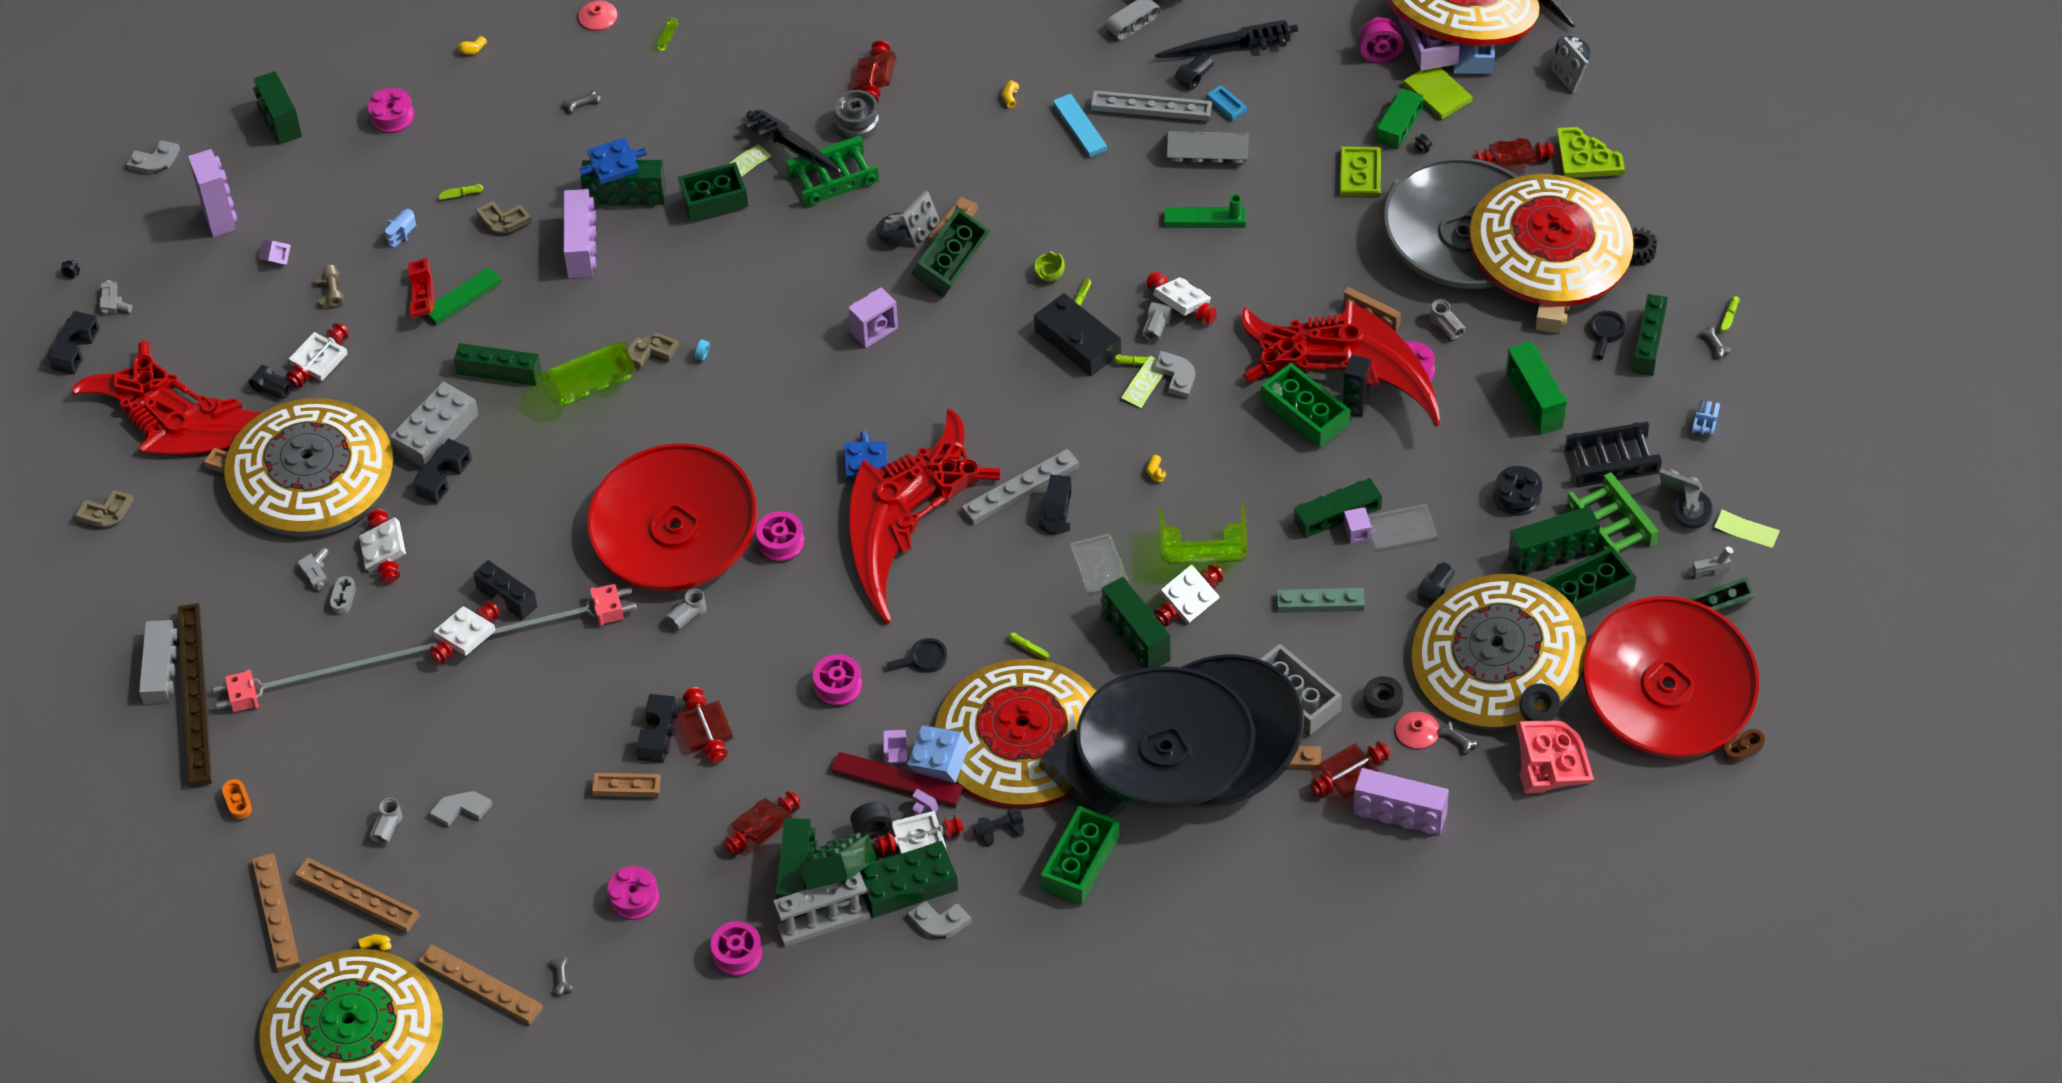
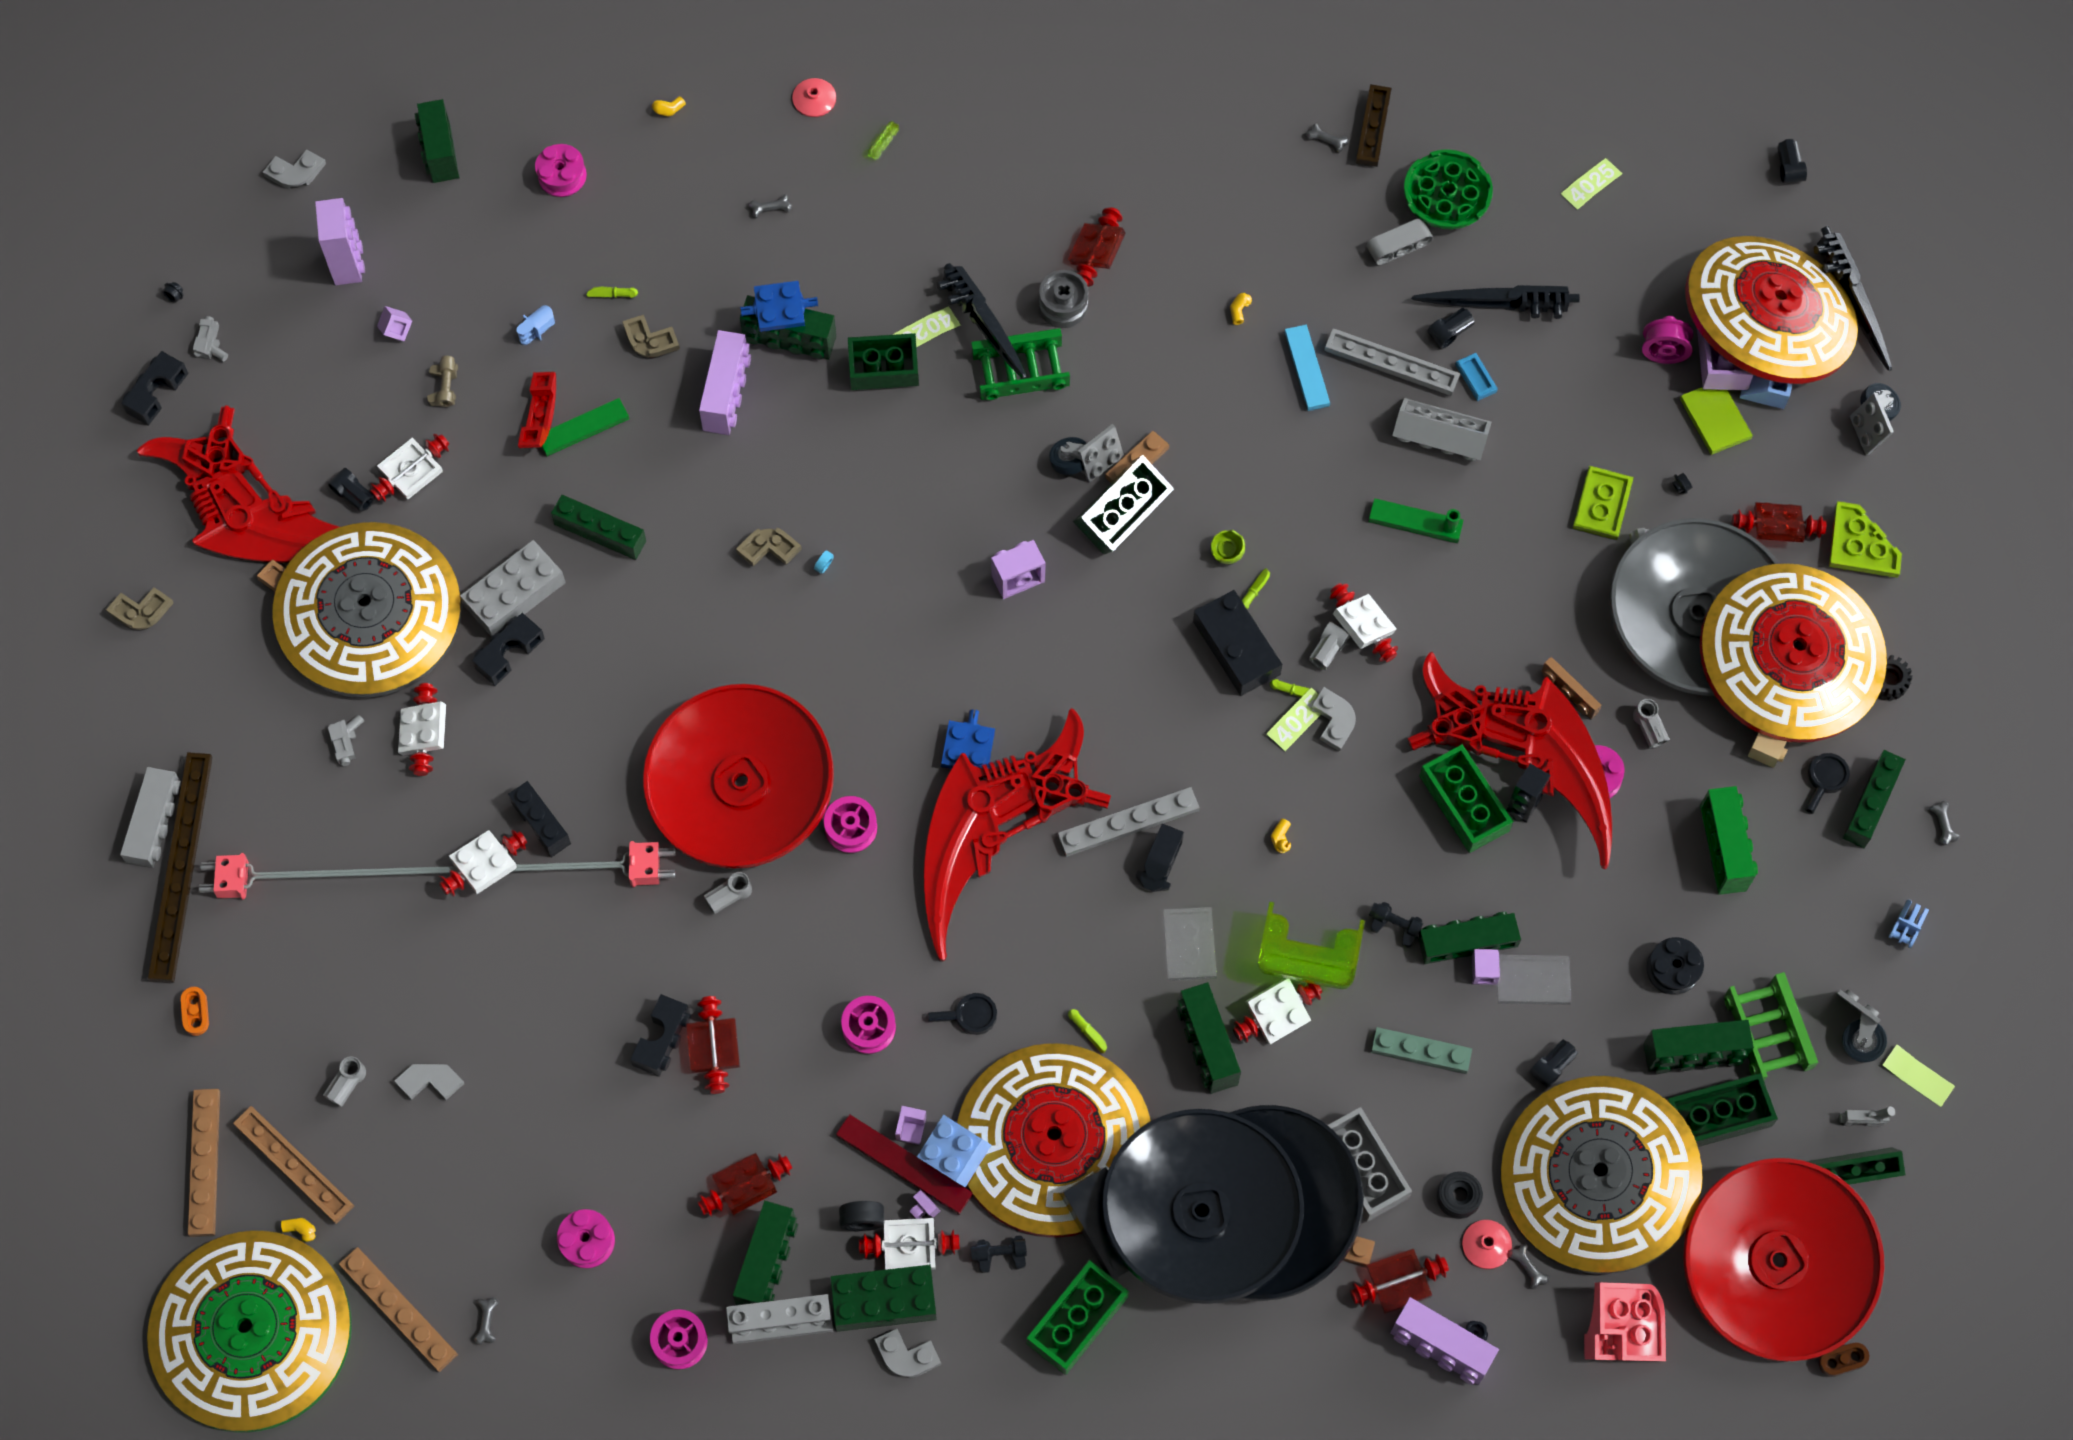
camera: 10 degrees right, 15 degrees up
(338, 594) = (362, 777): light grey beam -> none
(588, 372) = (690, 562): clear neon green windscreen -> none
(626, 785) = (611, 1098): medium nougat plate -> none
(837, 860) = (808, 1272): dark green brick -> none
(1259, 507) = (1382, 915): none -> black piece
(1399, 118) = (1663, 444): green brick -> none
(1544, 692) = (1631, 1274): black tyre -> none
(1623, 469) = (1781, 963): black fence -> none
(1729, 315) = (1970, 790): lime piece -> none

